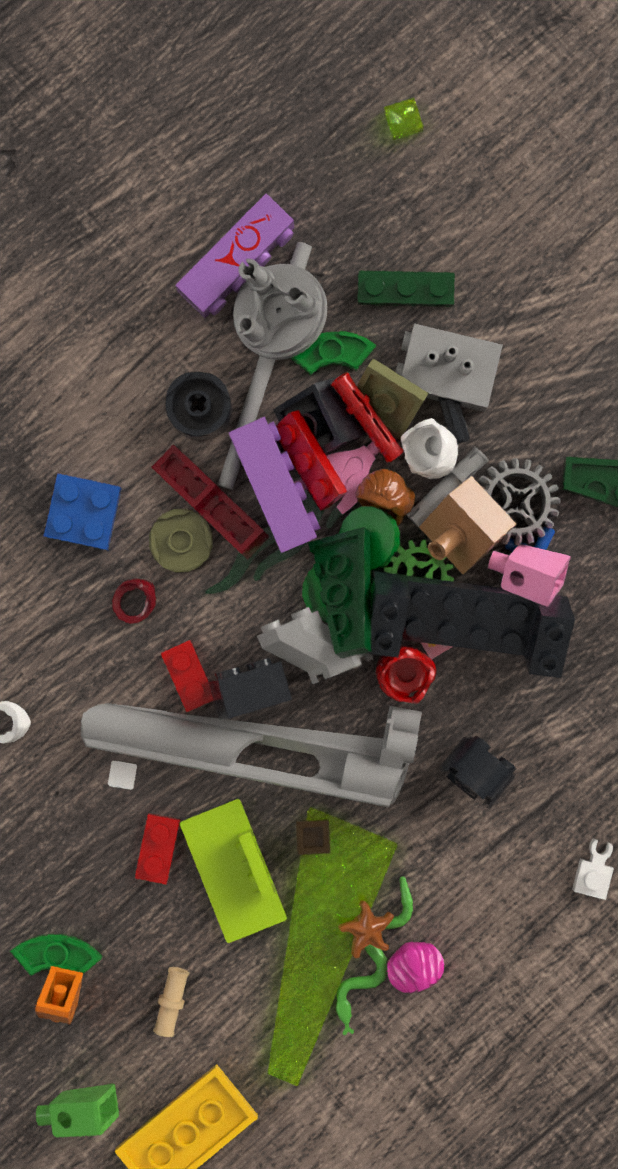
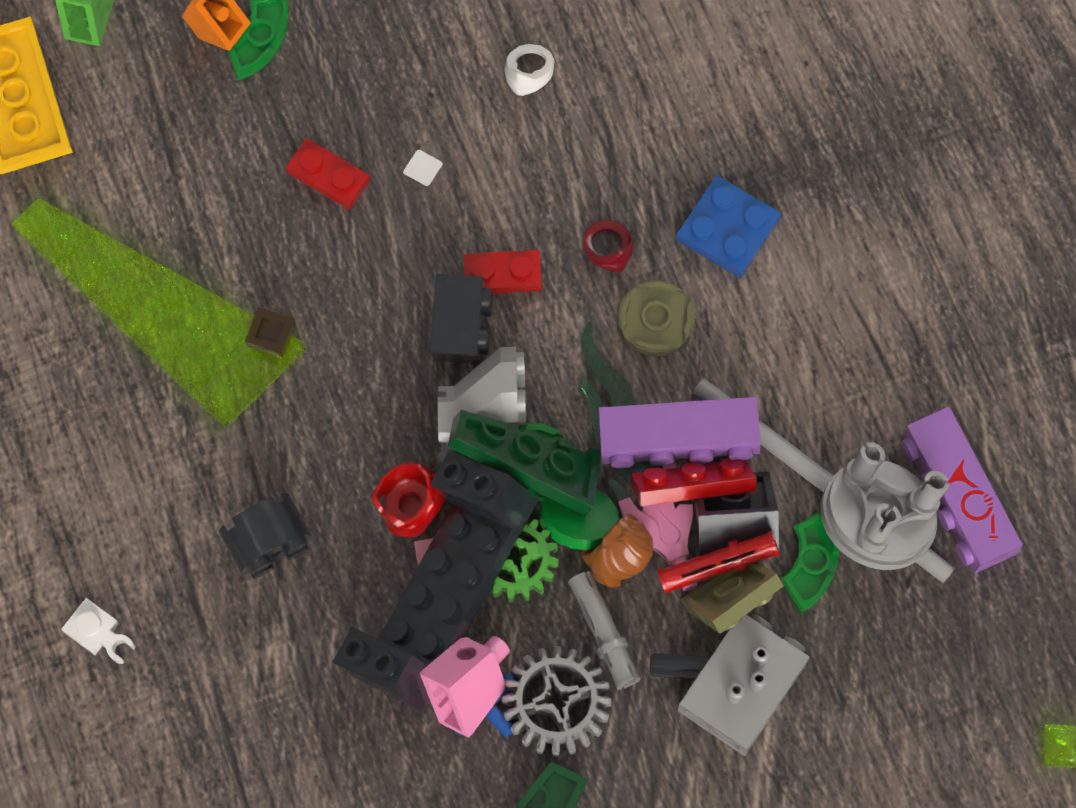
camera: 115 degrees right, 15 degrees down
(171, 1002) = (159, 128): tan pin -> none
(199, 387) = (808, 365): black brick -> none
(210, 502) = (687, 363): dark red slope -> none
(233, 870) = (270, 242): lime bracket -> none
(343, 1006) = (73, 304): bright green animal -> none
(350, 765) = (328, 409): light grey panel -> none
(367, 929) = (144, 351): dark orange animal -> none
(406, 288) = (856, 673): dark green plate -> none
(415, 967) = (80, 391): dark pink hair -> none
(430, 449) = (654, 619): white hair -> none
(466, 526) = (549, 621): medium nougat brick -> none

